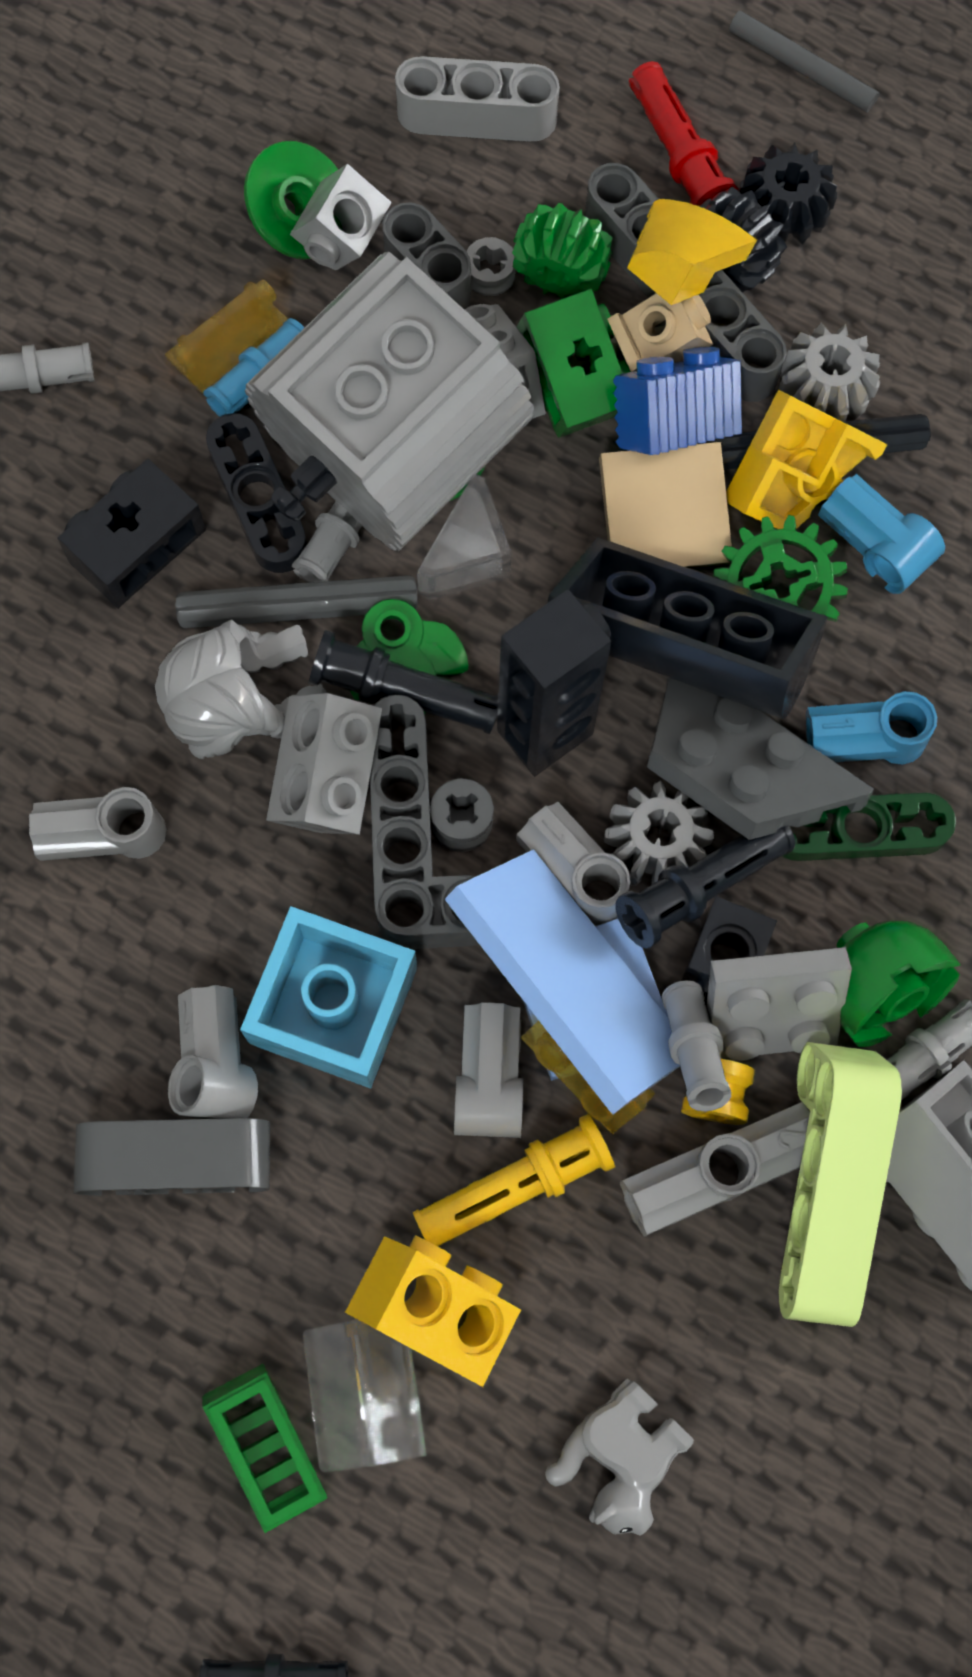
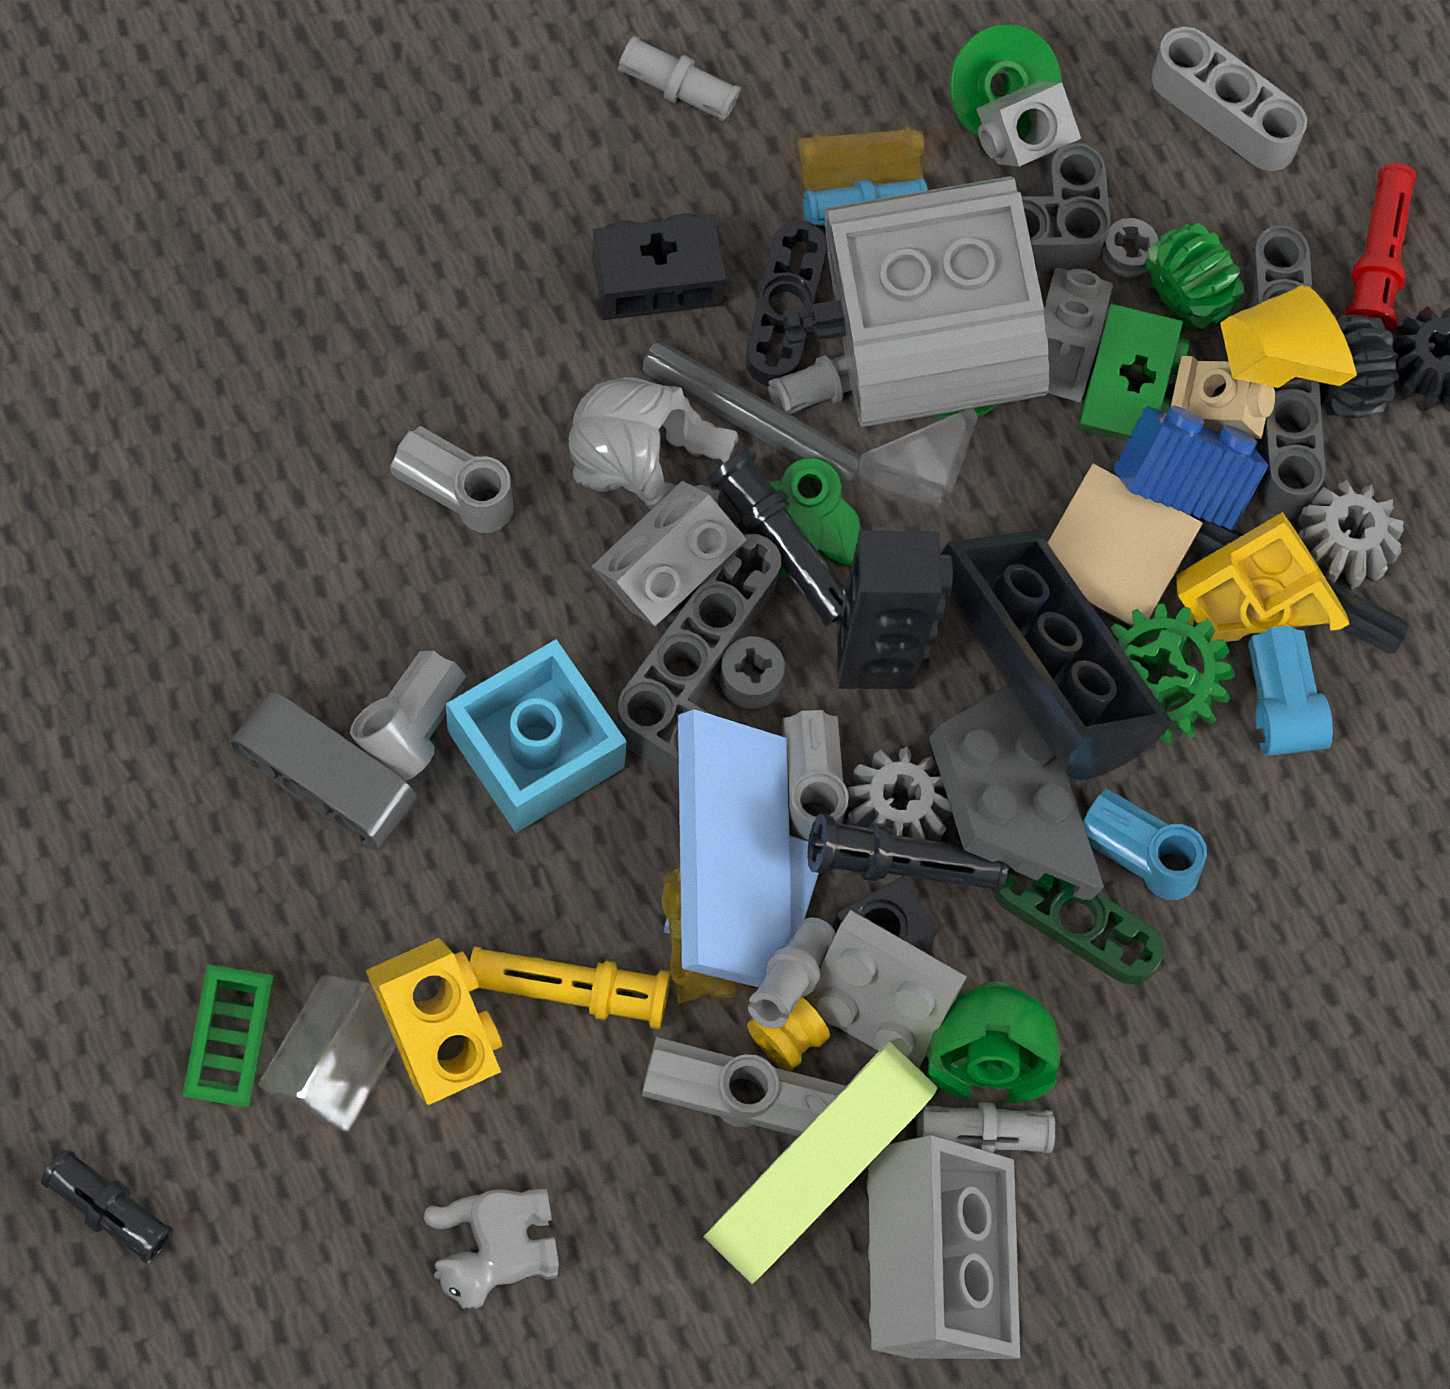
camera: 30 degrees right, 5 degrees down
(489, 1089) = (610, 894): light grey piece -> none

